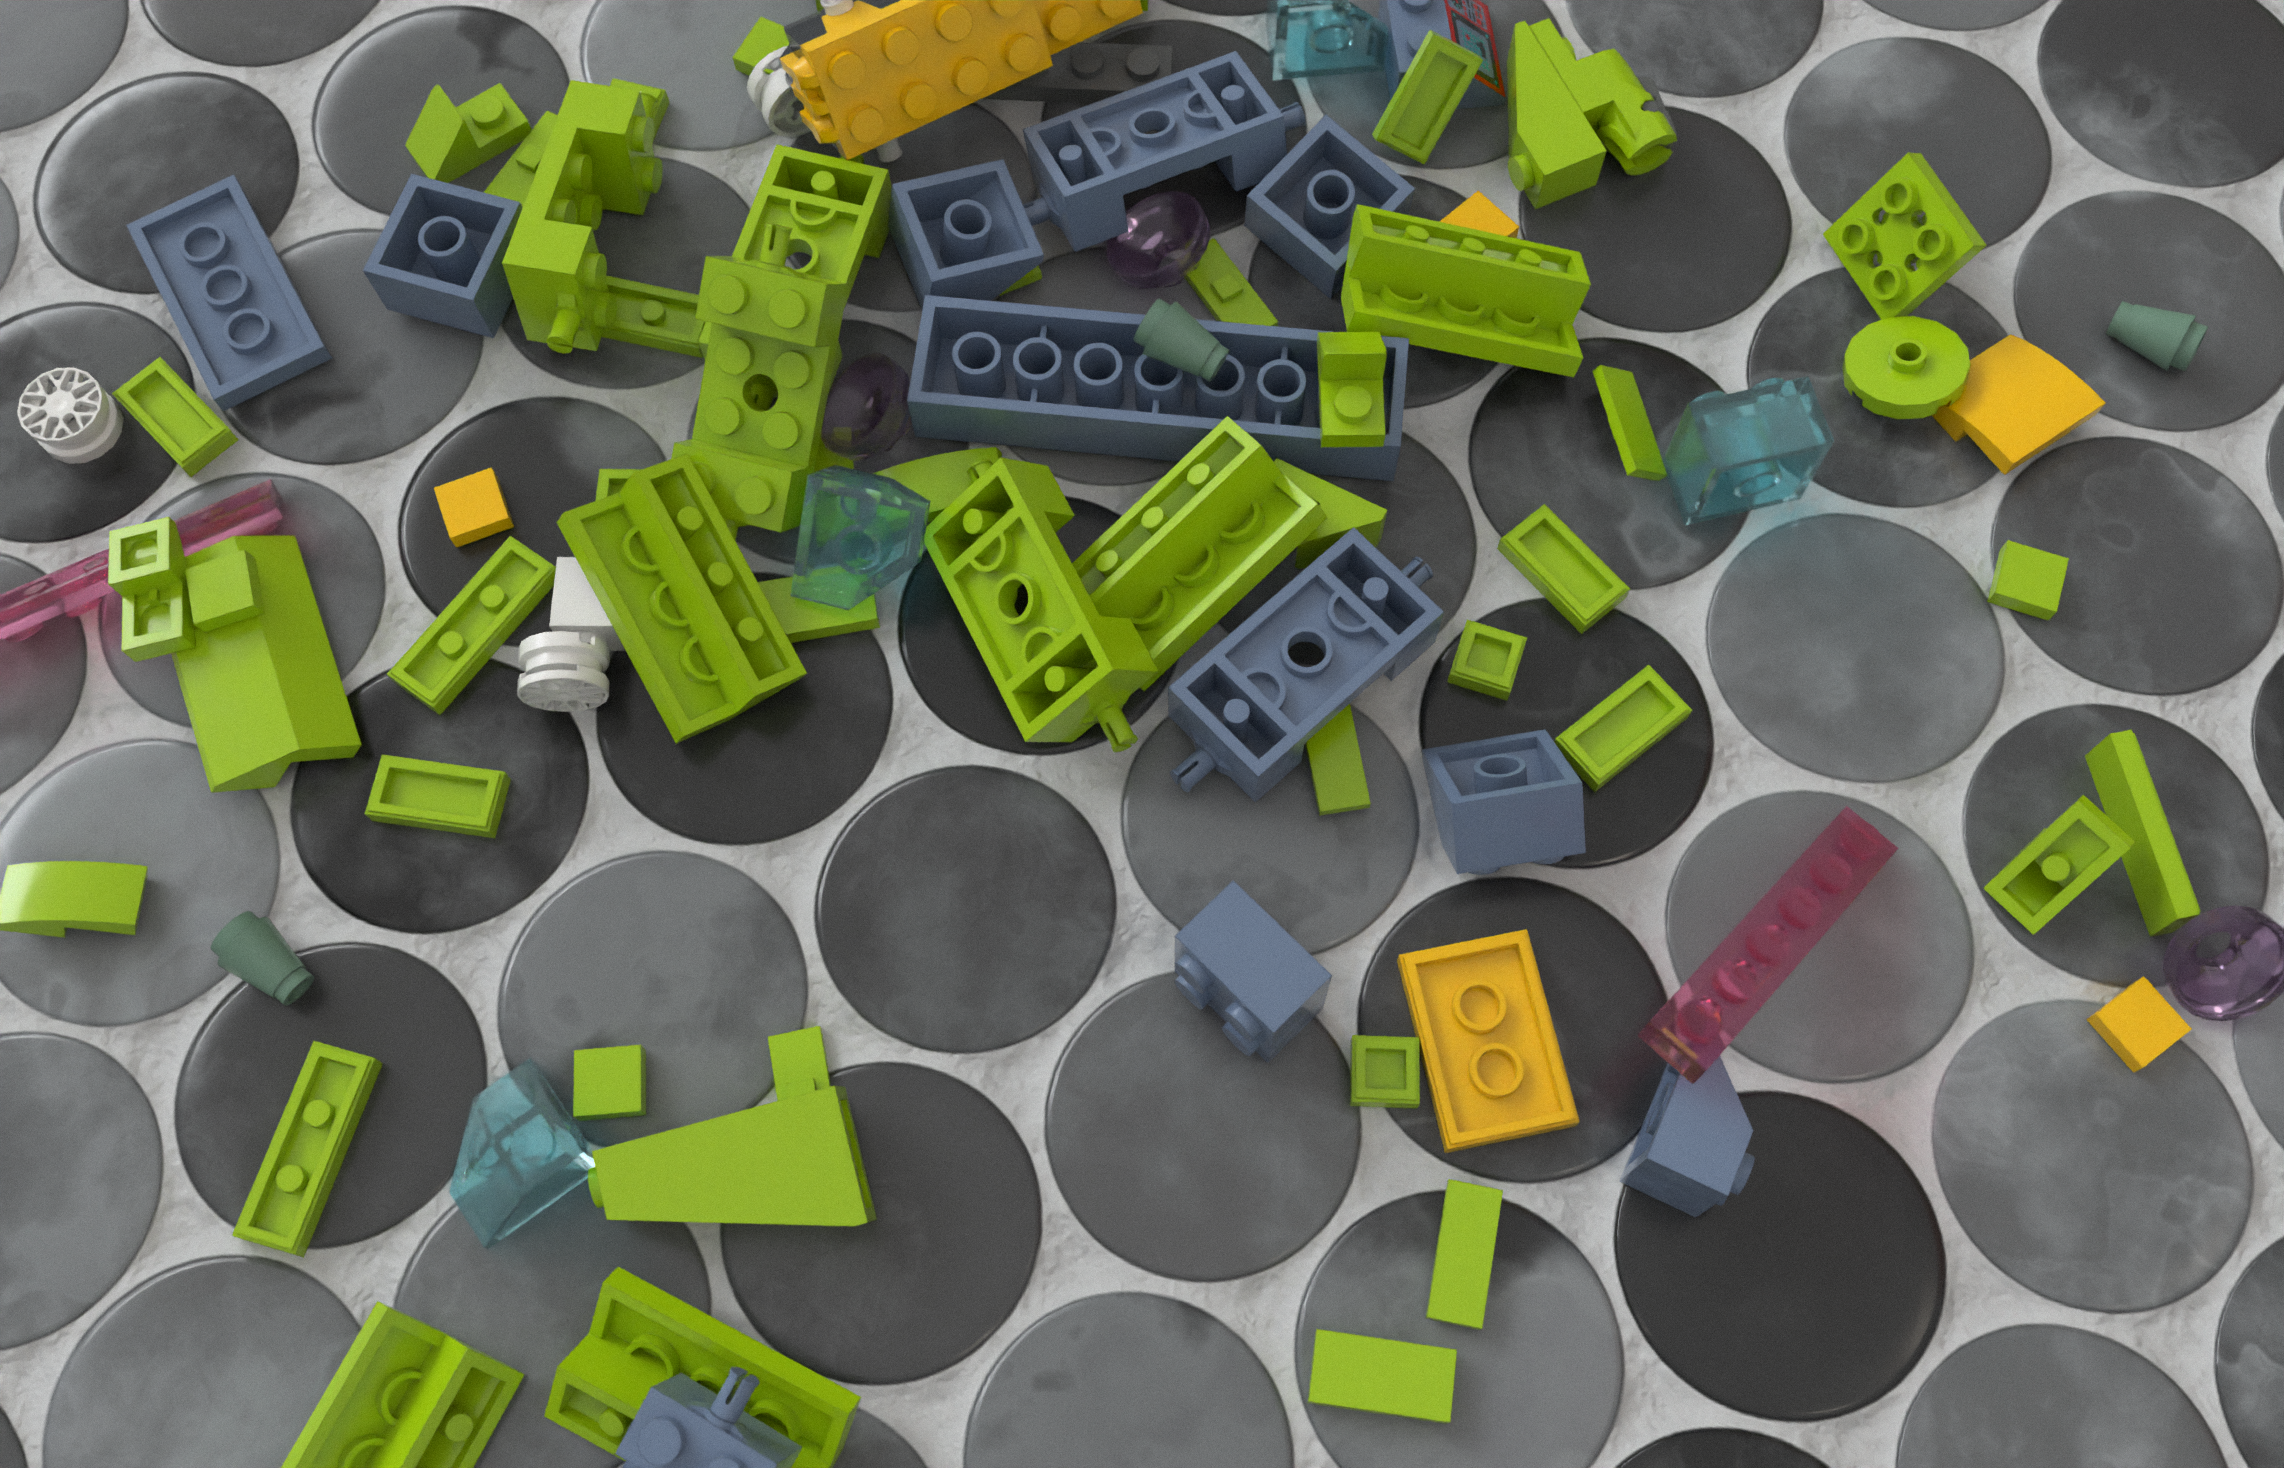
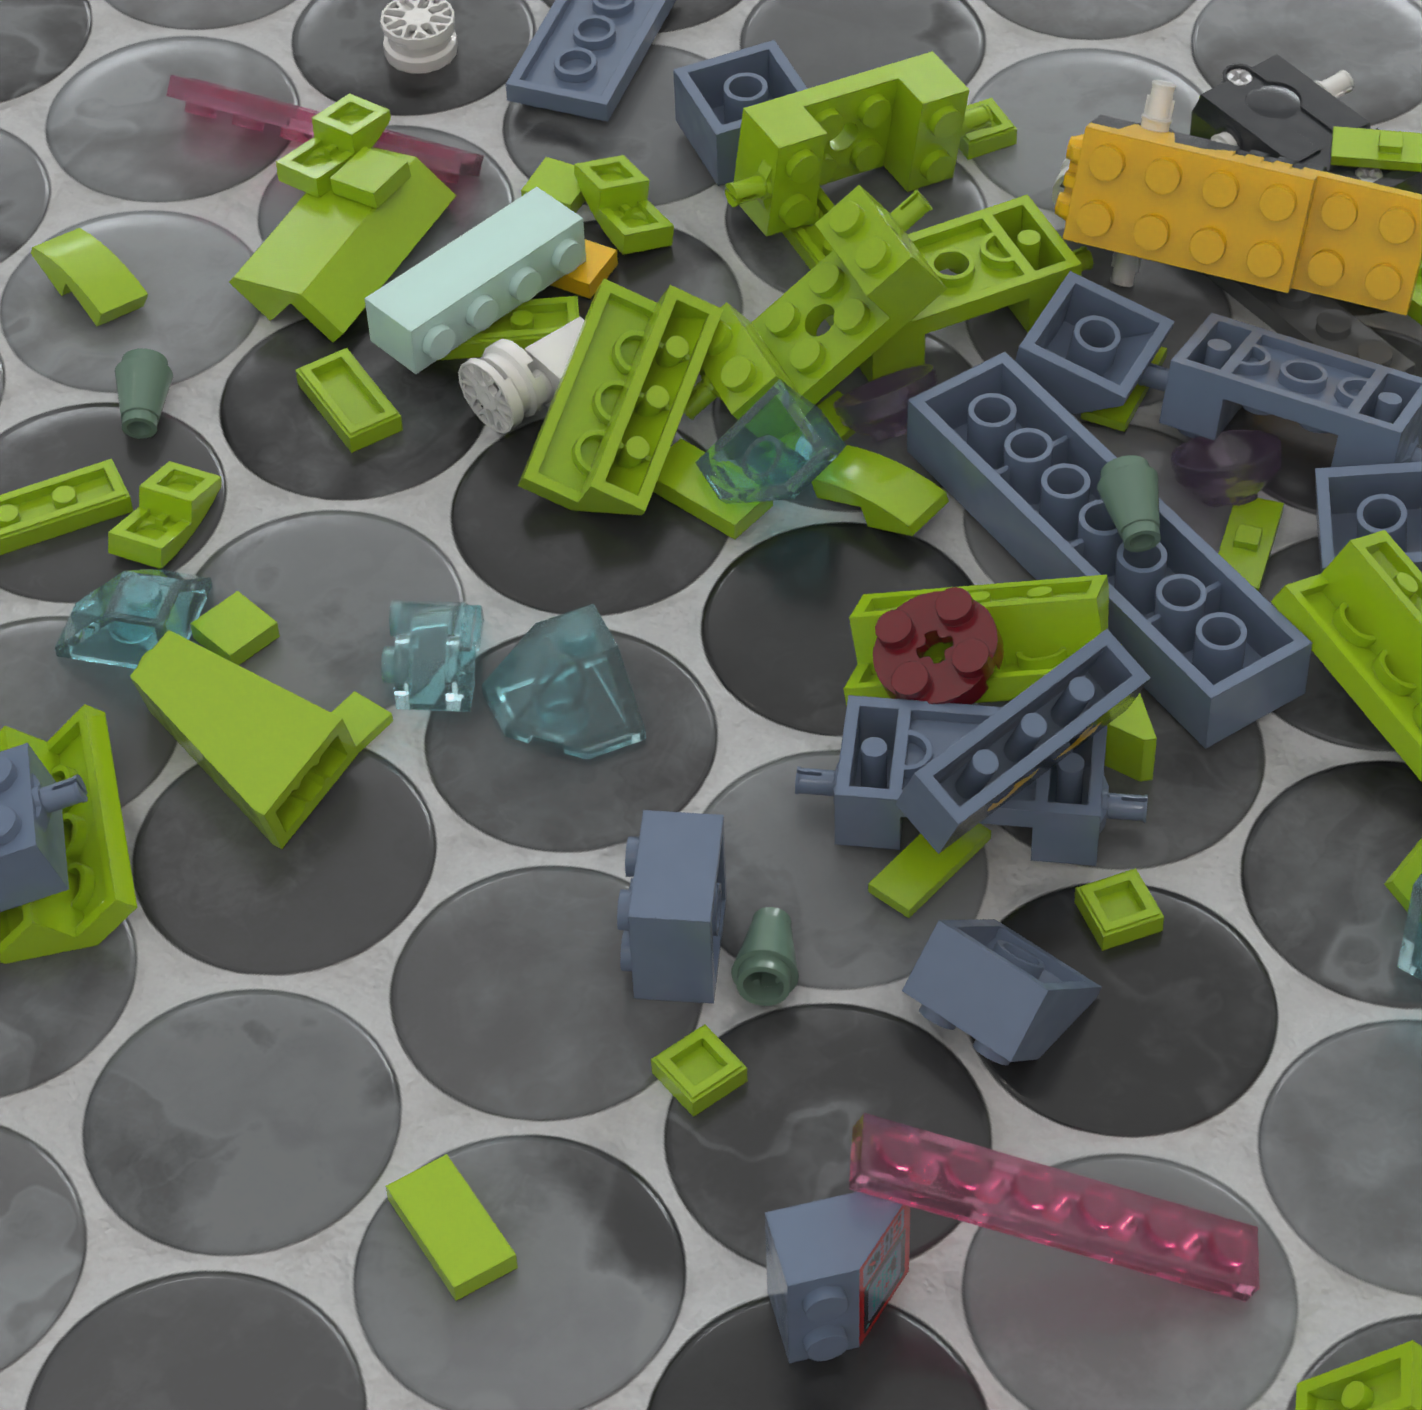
camera: 50 degrees right, 20 degrees down
(175, 416) = (477, 82): lime tile -> none
(368, 453) = (558, 181): none -> lime tile
(422, 1043) = (167, 515): none -> lime slope
(430, 601) = (475, 280): none -> light aqua brick
(435, 422) = (621, 206): none -> lime slope
(458, 139) = (843, 52): lime slope -> none
(793, 943) = (433, 654): none -> clear light blue cylinder
(930, 876) = (566, 687): none -> clear light blue slope
(1059, 659) = (802, 624): lime brick -> none
(1175, 555) = (934, 619): none -> dark red plate
(1330, 938) = (766, 959): none -> sand green cone
(1351, 389) = (1219, 629): lime slope -> none
(1362, 612) = (1022, 741): none -> sand blue brick
(1464, 1254) = (600, 1215): lime piece -> none
(1487, 1041) = (790, 1117): yellow tile -> none
(1563, 568) = (1257, 906): lime tile -> none
(1622, 728) = (1159, 1035): lime tile -> none

